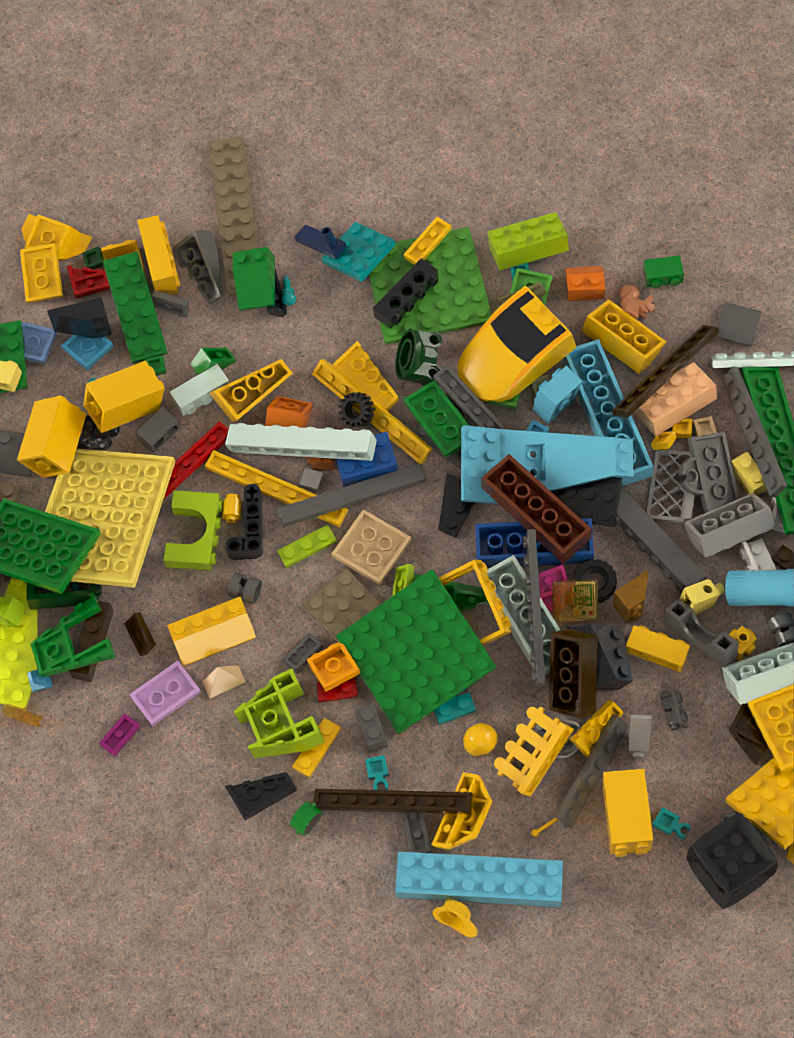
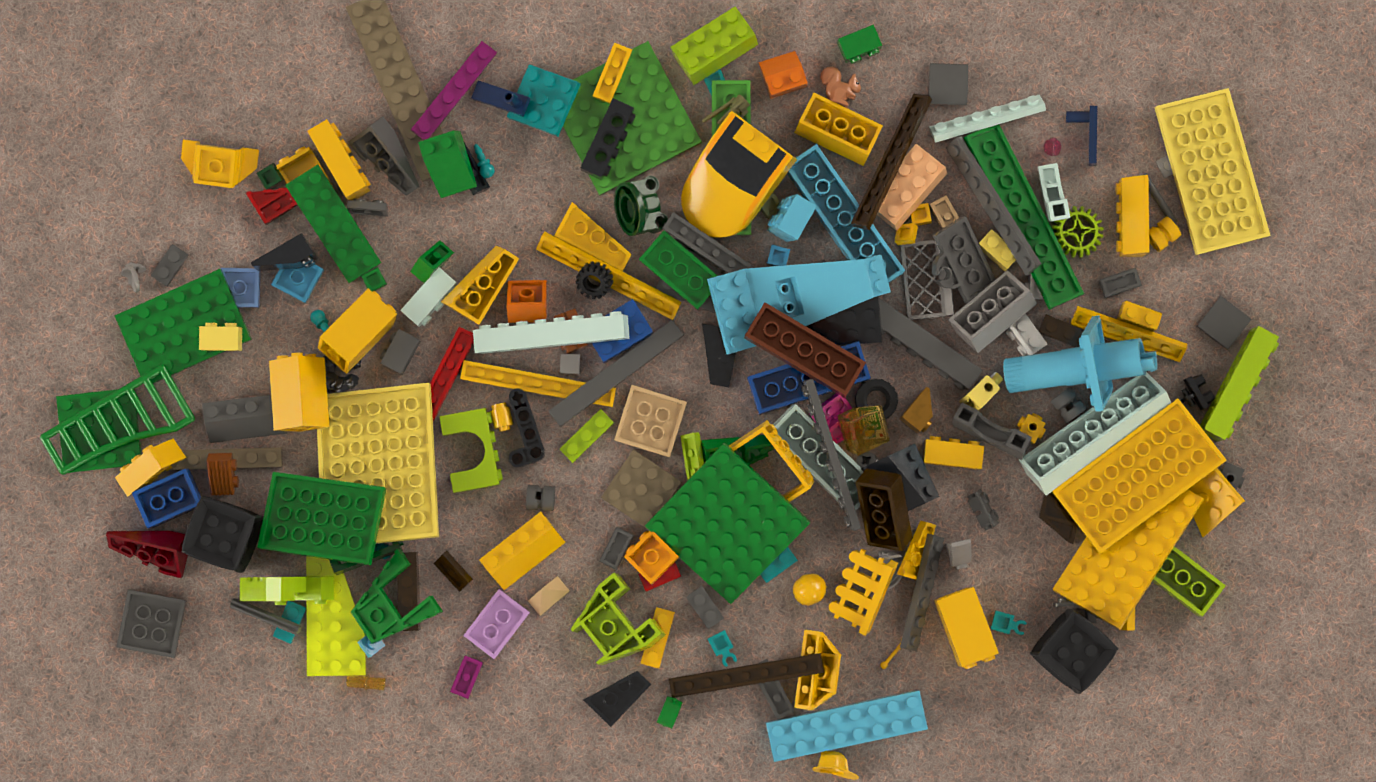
camera: 25 degrees left, 20 degrees up
(41, 273) = (222, 209): yellow plate -> none
(283, 225) = (454, 91): none -> magenta plate

